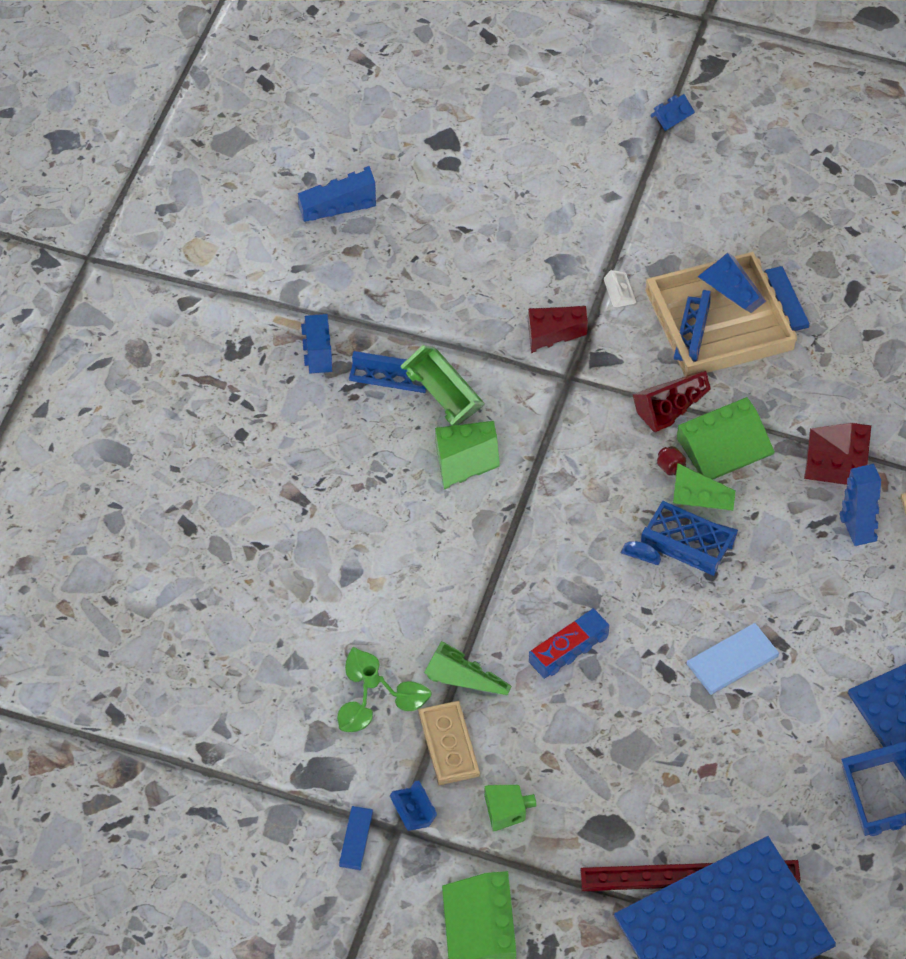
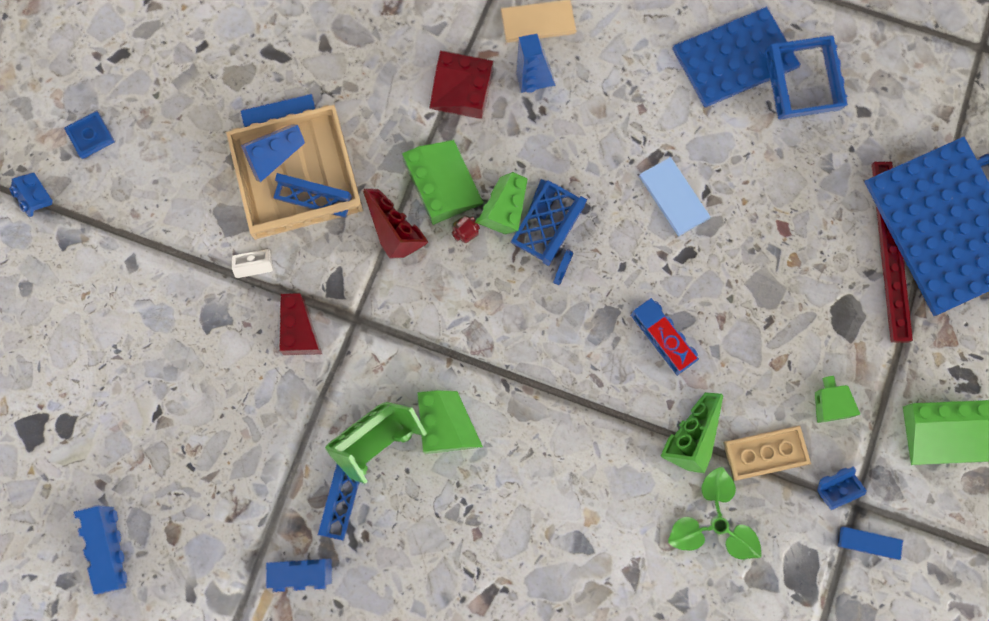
camera: 90 degrees left, 20 degrees up
(740, 150) = (89, 135): none -> blue tile

